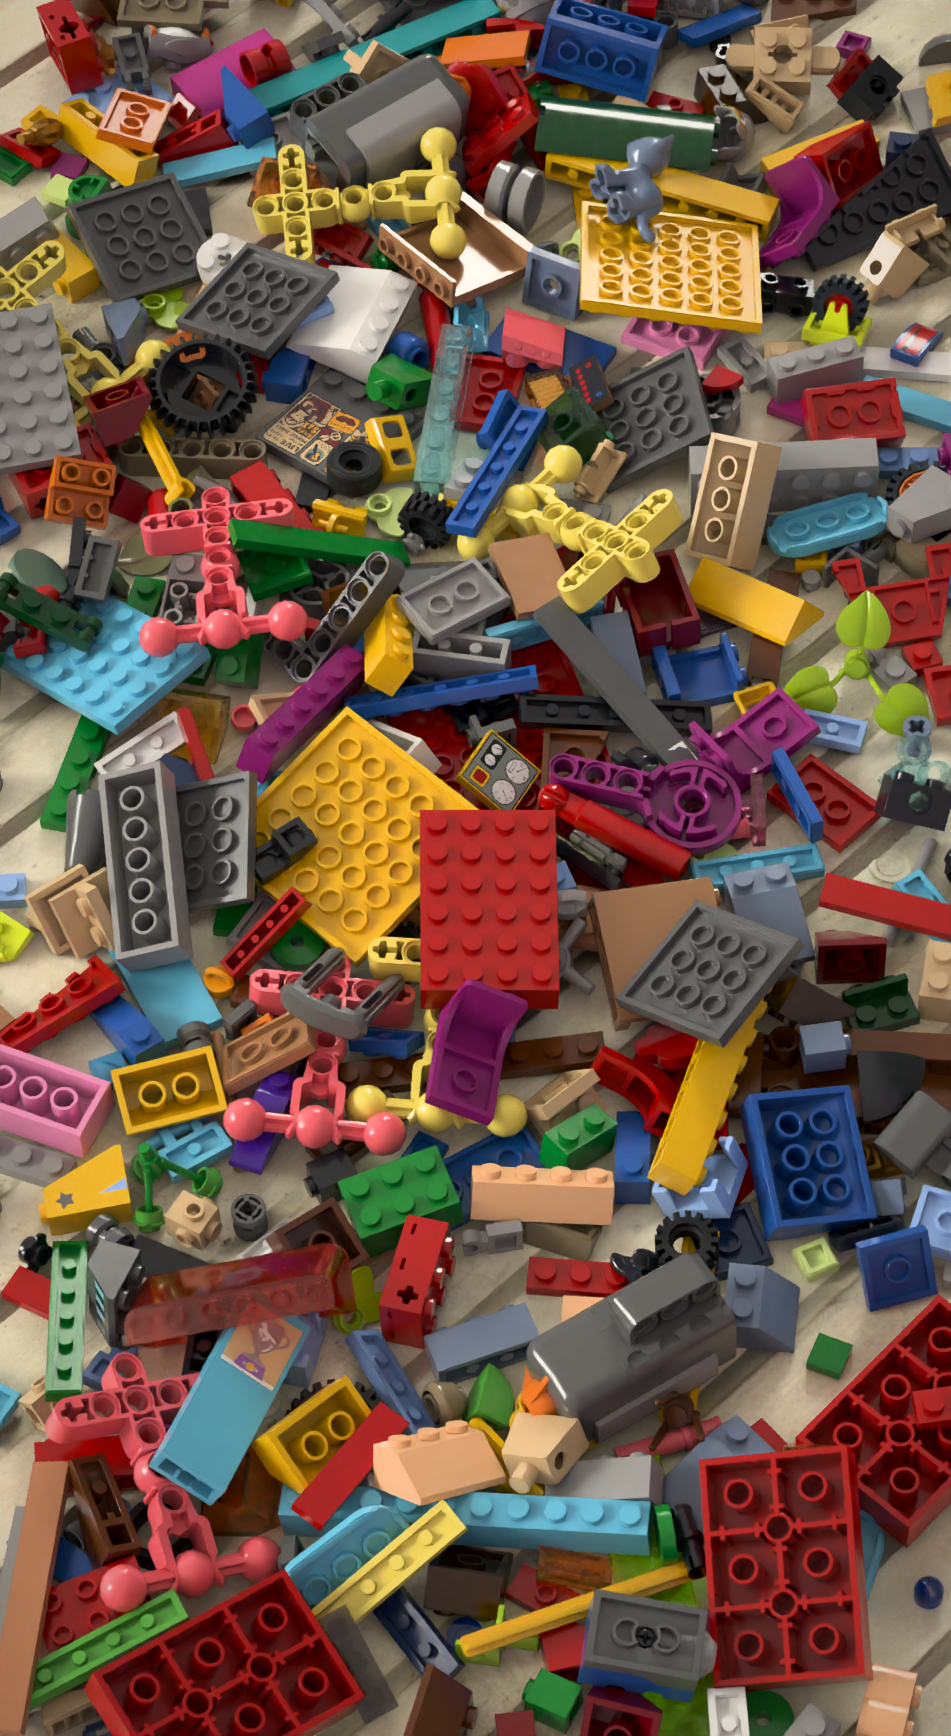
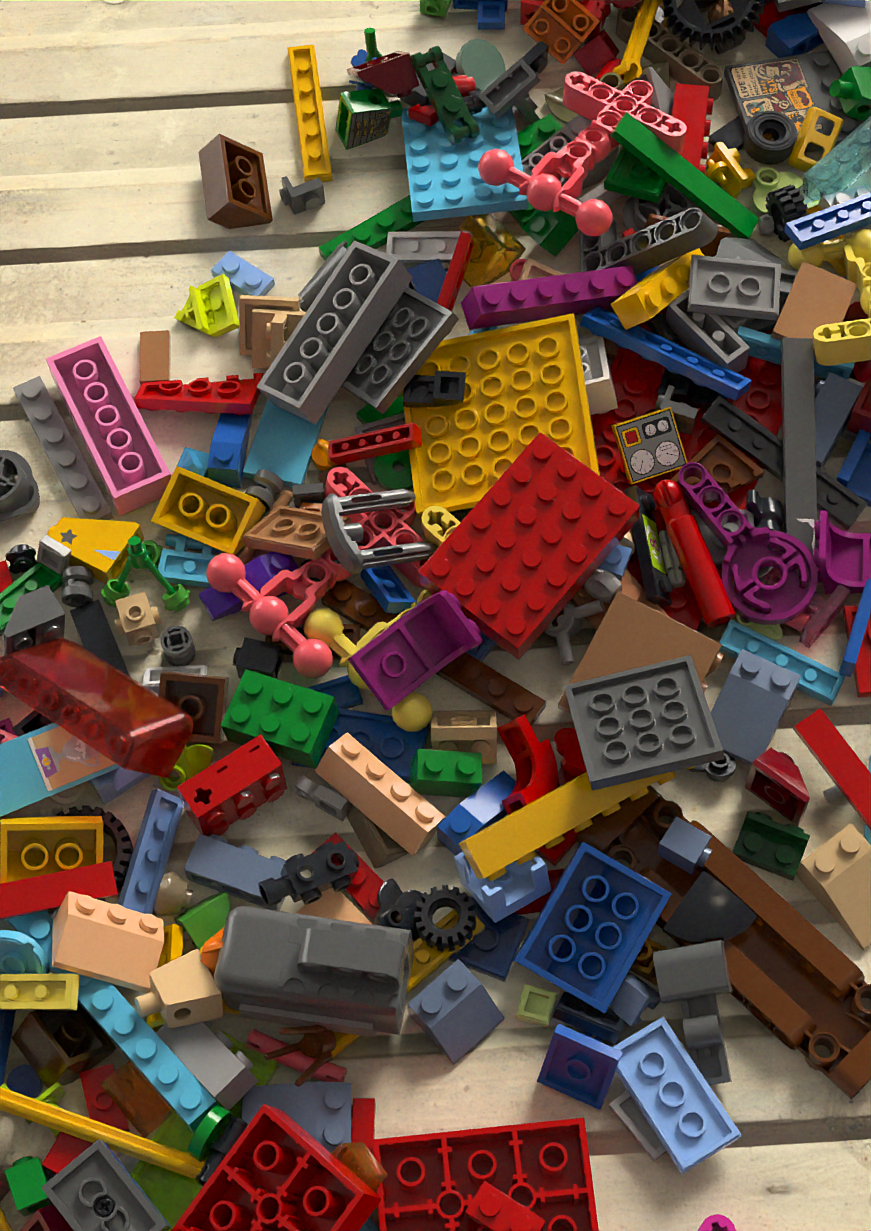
camera: 40 degrees right, 10 degrees up
(66, 1224) = (53, 554): none -> light grey tile
(562, 1277) = (323, 875): none -> black brick
(801, 1002) = (710, 799): dark brown slope -> none
(829, 1356) = (473, 1090): green tile -> none

